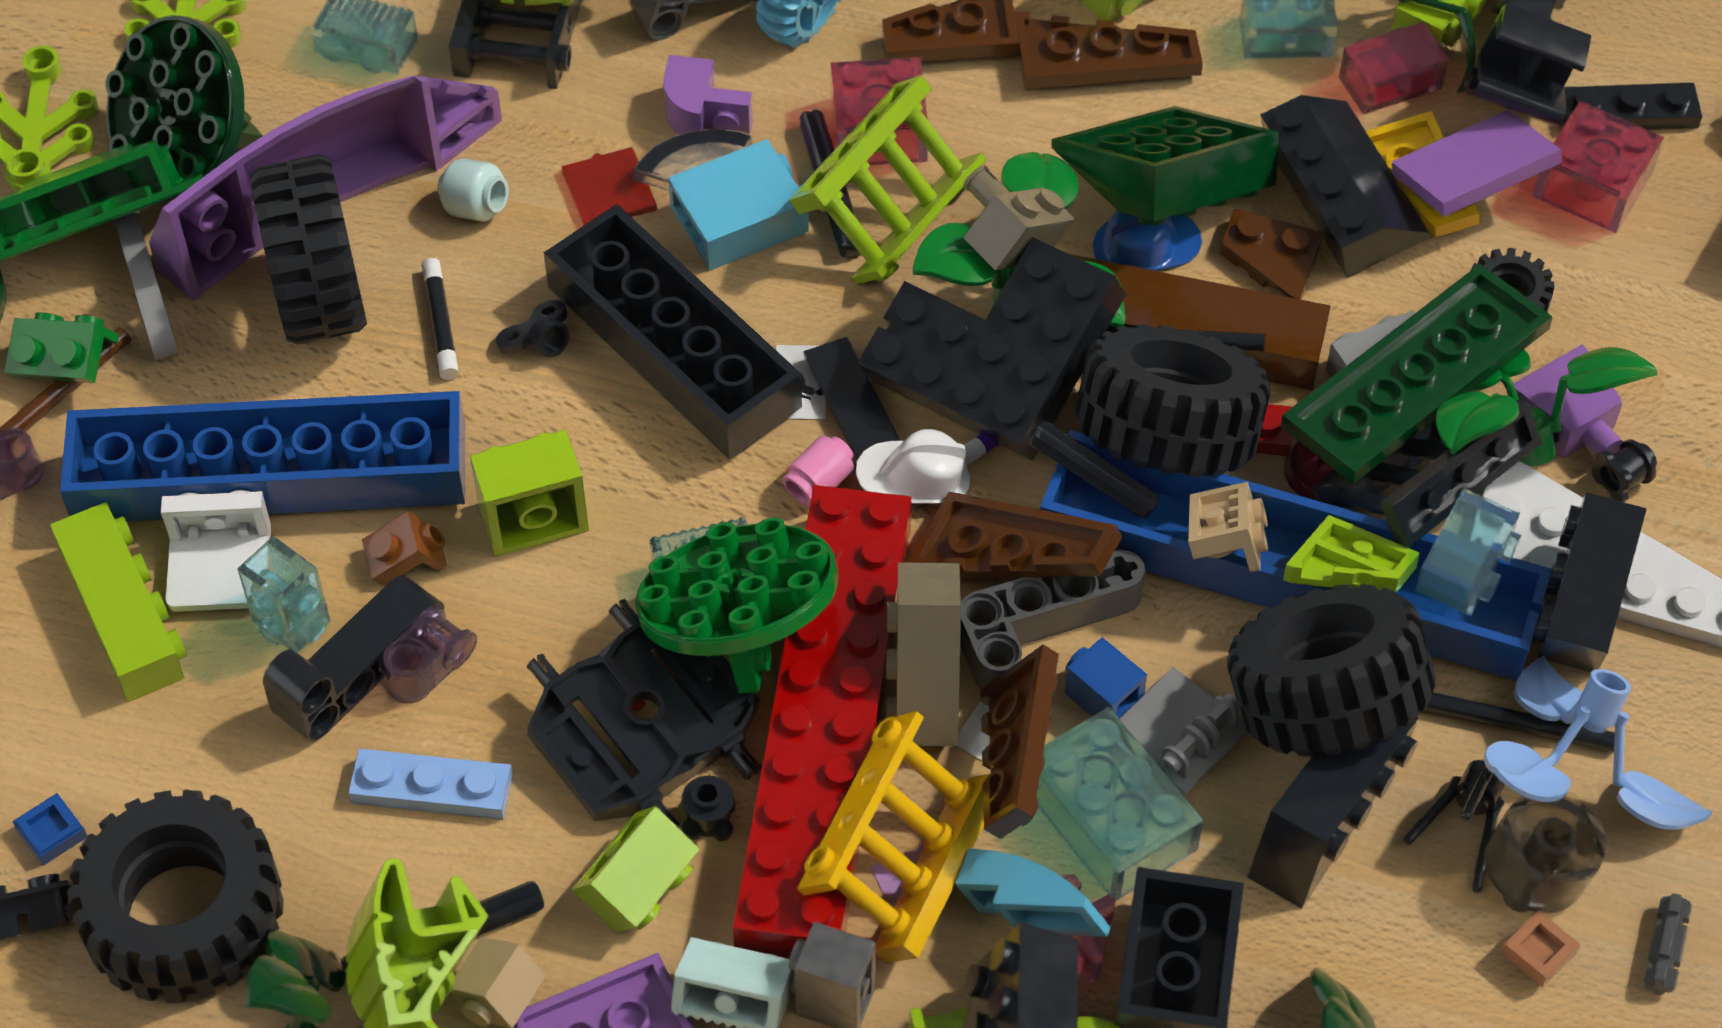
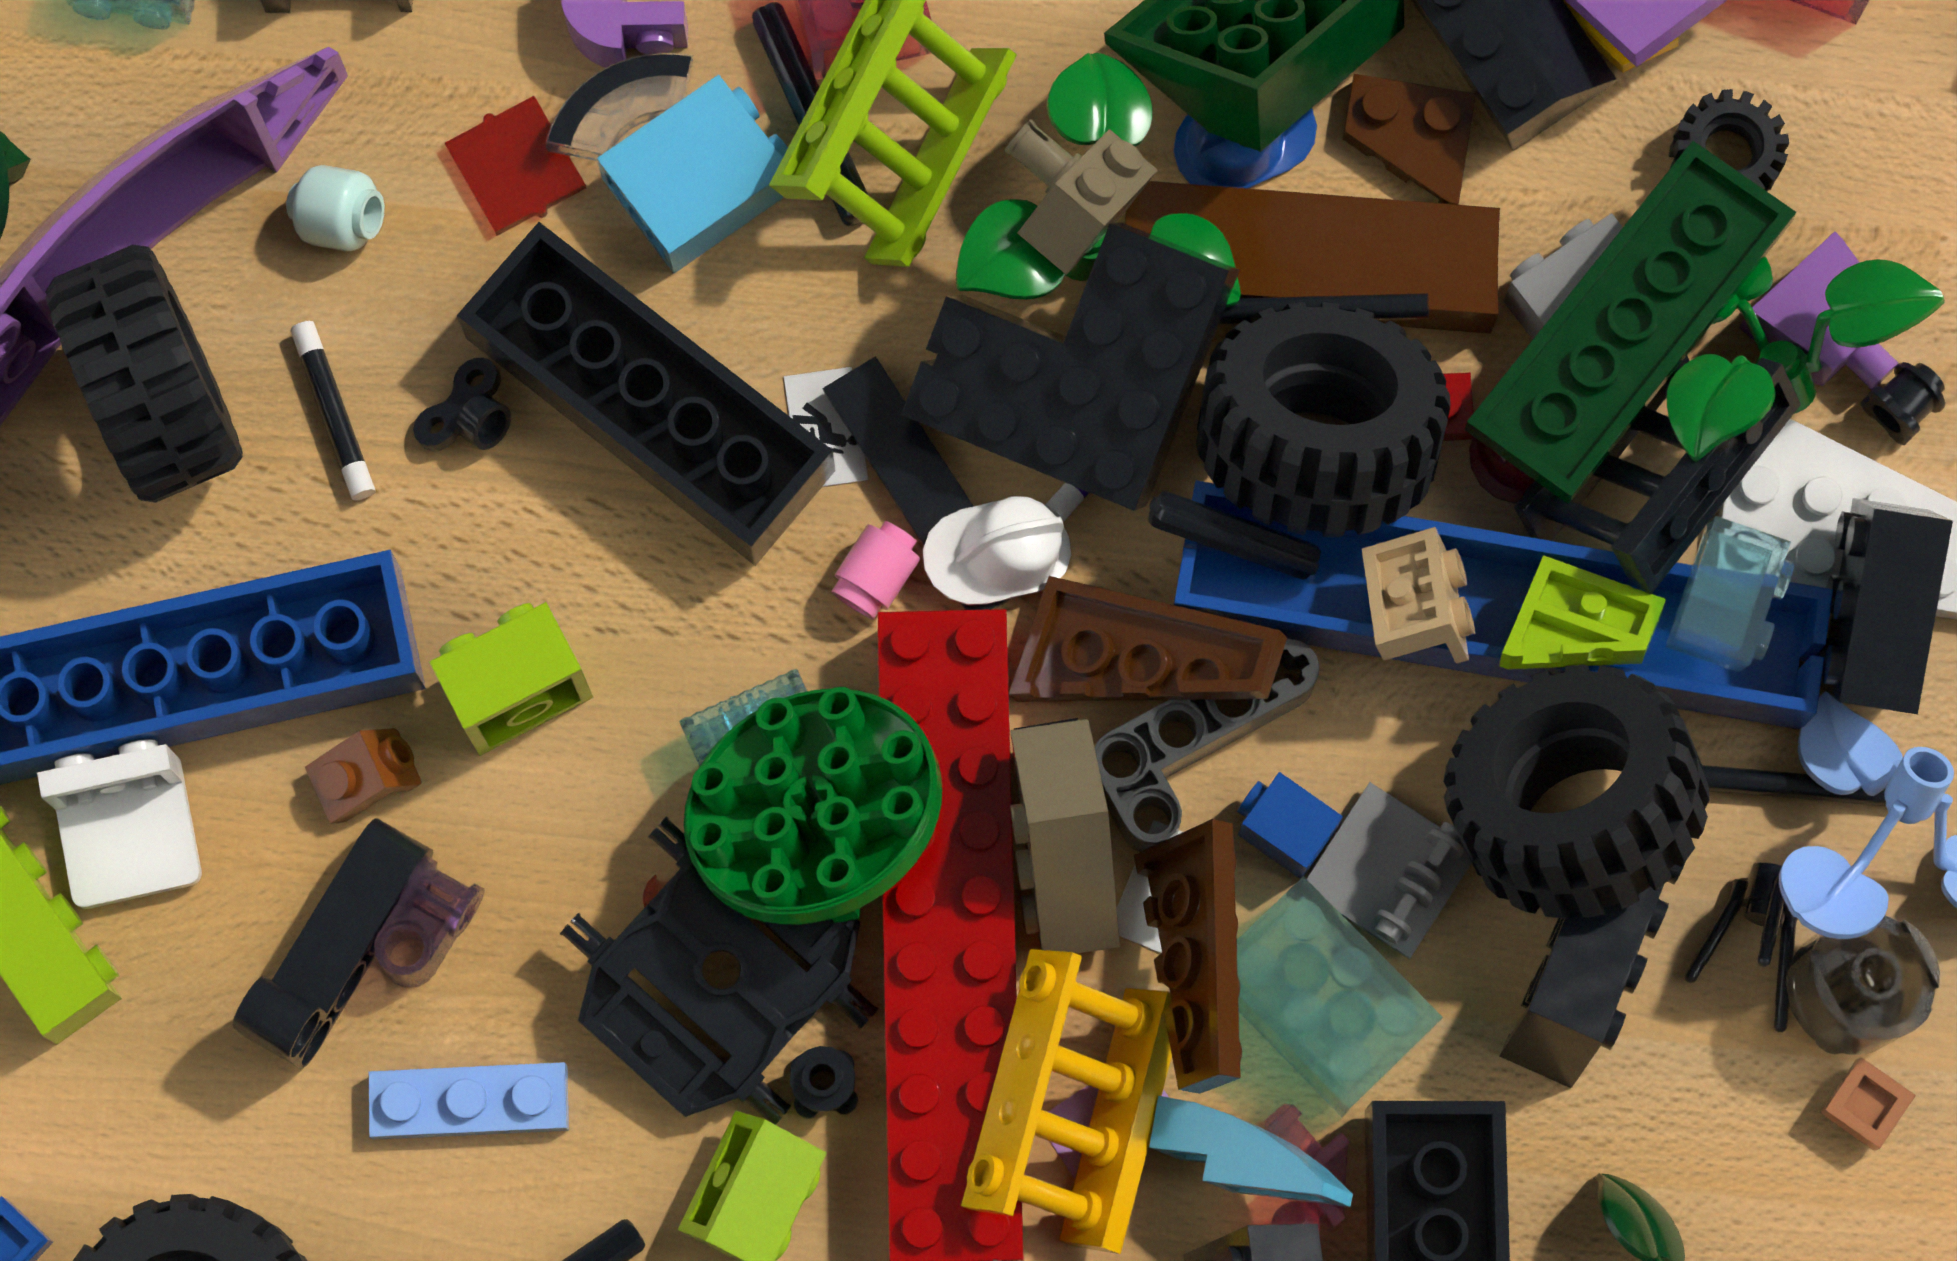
camera: 10 degrees left, 20 degrees up
(284, 595) = (228, 885): clear light blue brick -> none

